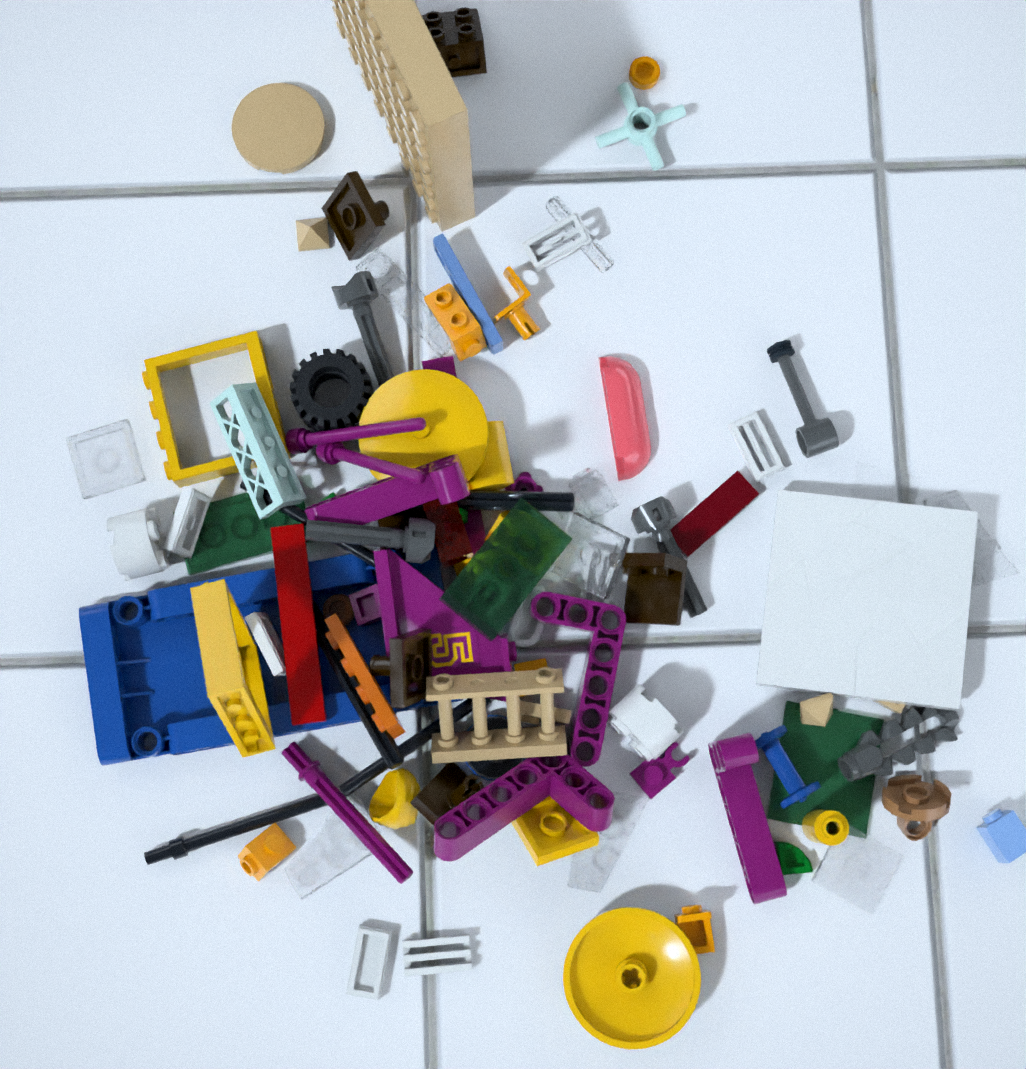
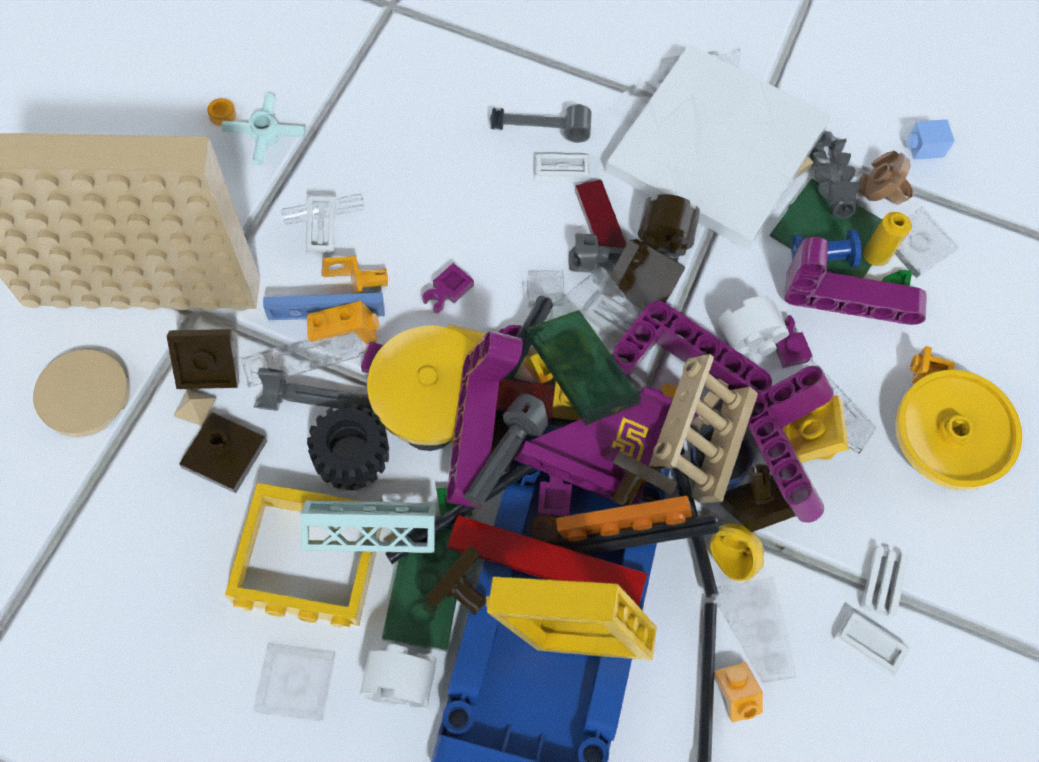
camera: 70 degrees left, 15 degrees down
(187, 522) = (401, 623): white tile -> none
(236, 553) = (455, 585): none -> dark brown tile
(281, 284) = (223, 452): none -> dark brown tile
(302, 440) = (377, 490): magenta piece -> none
(317, 779) = (734, 597): magenta axle -> none
(335, 452) = (401, 471): magenta piece -> none
(553, 401) = (449, 285): none -> magenta plate
(625, 416) = (489, 242): coral brick -> none
(730, 587) = (669, 223): none -> dark brown brick
(817, 710) = (791, 210): tan slope -> none

